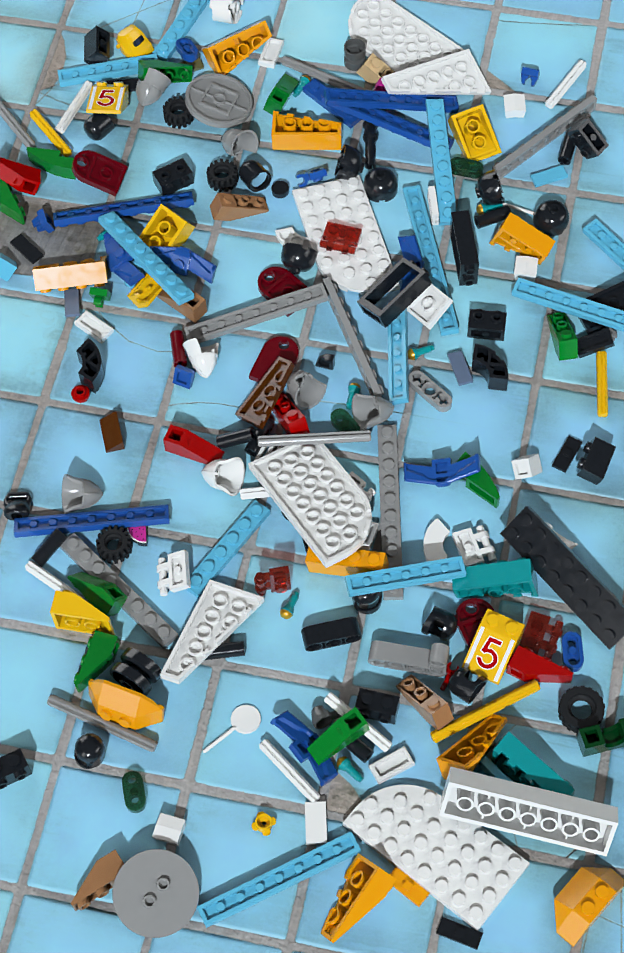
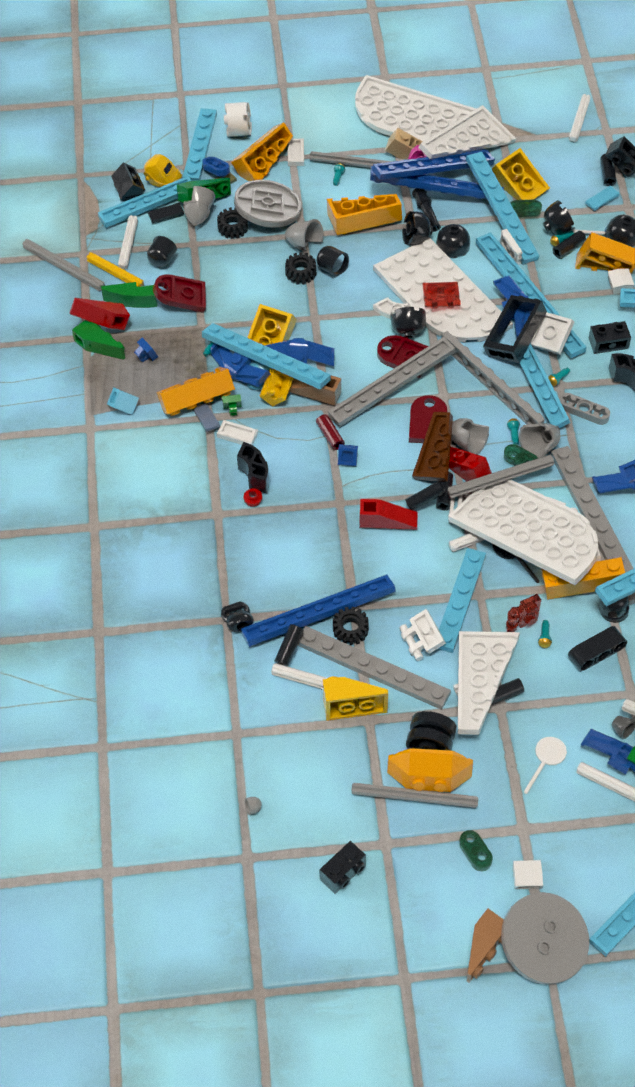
camera: 20 degrees left, 5 degrees down
(27, 249) = (138, 379): black piece -> none
(79, 493) = (293, 588): light grey helmet -> none
(90, 750) = (417, 821): black helmet -> none
(99, 592) = (360, 670): green slope -> none
(100, 655) = (385, 732): green slope -> none
(108, 98) = (162, 223): yellow slope -> none
(111, 433) = (300, 524): reddish brown slope -> none
(130, 208) = (222, 319): blue plate -> none
(138, 535) = (371, 611): dark pink tile -> none
(173, 177) = (254, 281): black brick -> none
(202, 358) = (357, 432): white helmet -> none
(225, 475) = (428, 532): white helmet -> none
(235, 206) = (326, 292): medium nougat slope -> none
(263, 817) = (616, 835): yellow plate -> none
(280, 94) = (324, 185): green slope -> none
(280, 189) = (360, 268): black tile -> none
(315, 90) = (362, 178): blue plate -> none
(315, 175) = (389, 247): blue plate -> none
(326, 361) = (476, 407): black tile -> none
(354, 54) = (377, 134): dark grey wheel -> none
(460, 368) = (602, 381): sand blue piece -> none
(464, 248) = (559, 275): black window -> none
(514, 105) = (543, 145): white piece -> none
(530, 73) = (545, 115): blue tile -> none
(545, 137) = (585, 163): light grey plate -> none

